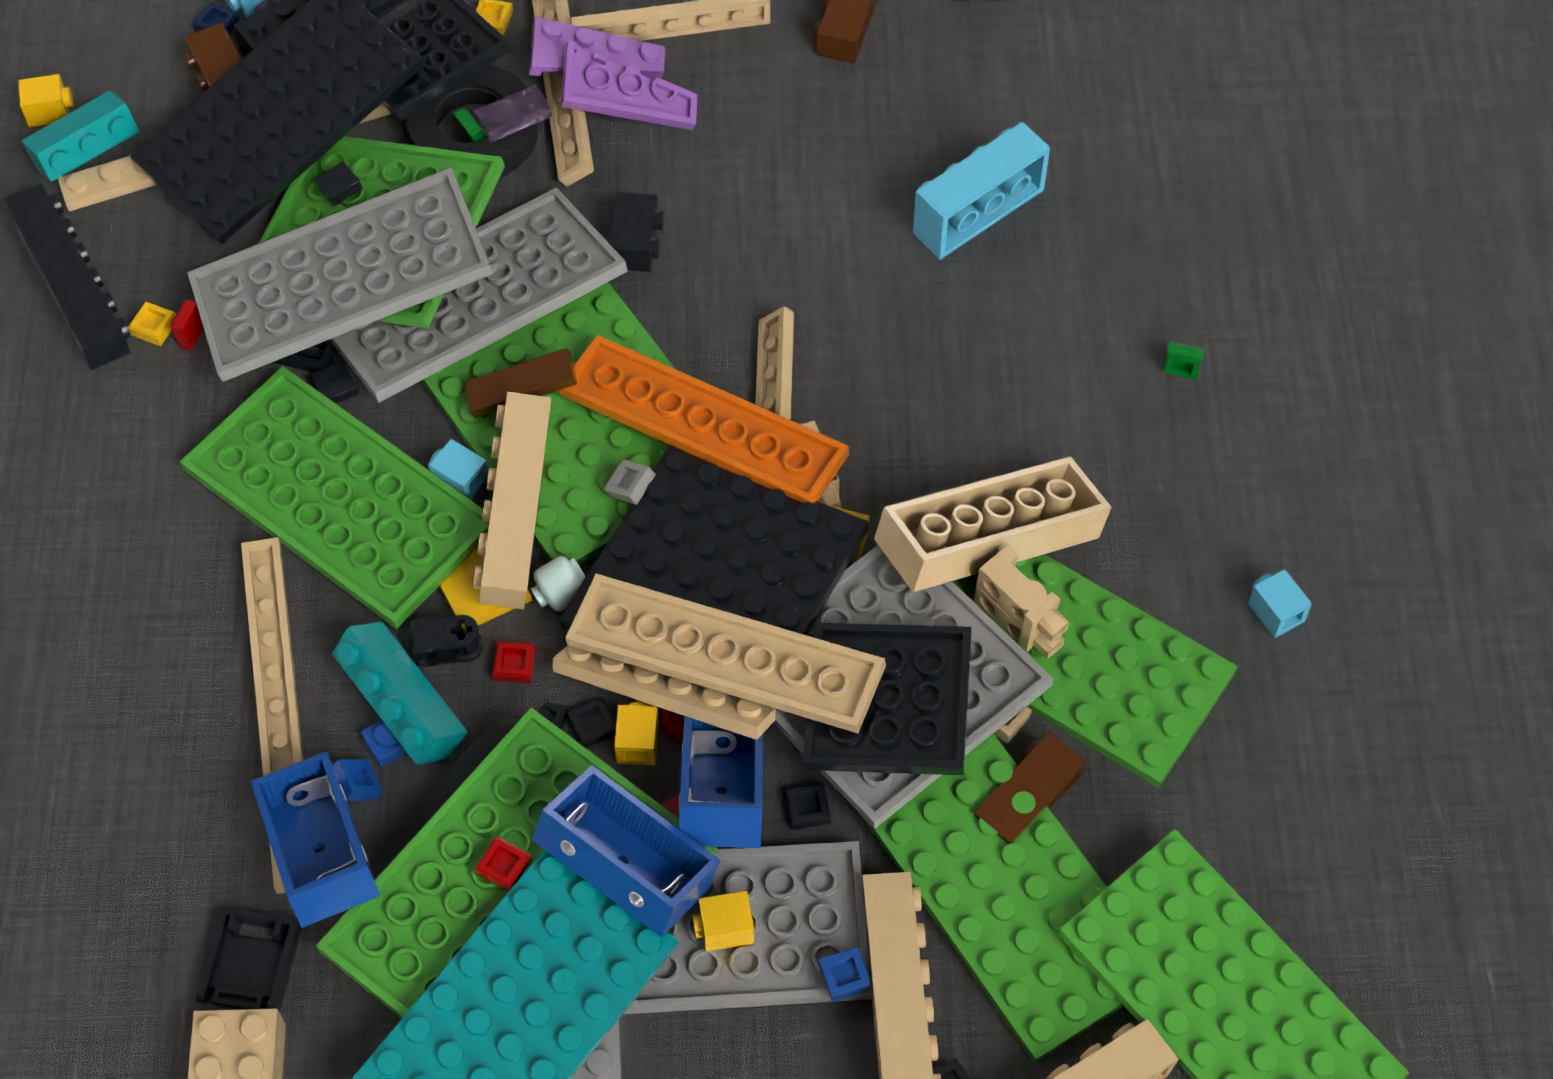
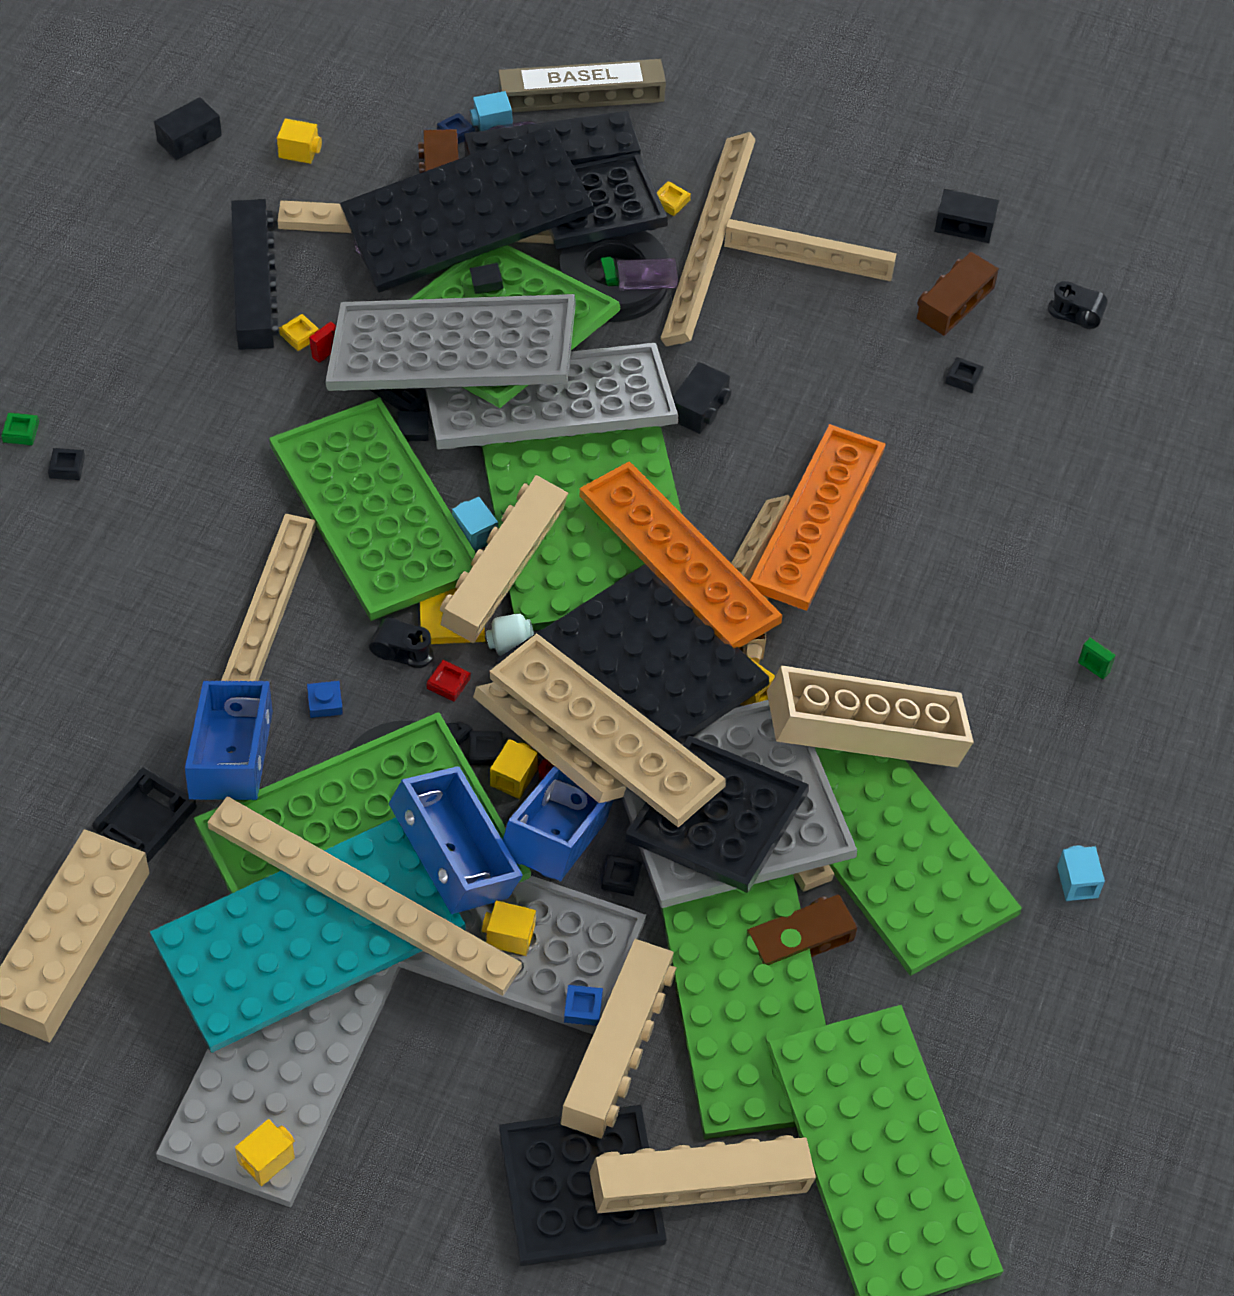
camera: 20 degrees right, 5 degrees down
(80, 136) = (311, 175): teal brick -> none
(358, 779) = (287, 717): blue plate -> none
(399, 693) = (348, 666): teal brick -> none
(503, 864) = (360, 815): red tile -> none
(531, 377) = (565, 474): reddish brown tile -> none
(551, 36) = (720, 243): medium lavender wing -> none
(553, 956) = (365, 896): none -> tan plate
(610, 89) = (730, 281): medium lavender wing -> none
(629, 481) = (599, 579): light grey plate -> none
(826, 320) = (817, 517): none -> orange plate
(898, 99) = (964, 375): none -> black tile
(980, 190) = (992, 465): medium azure brick -> none
(1020, 605) = (859, 786): tan hips -> none

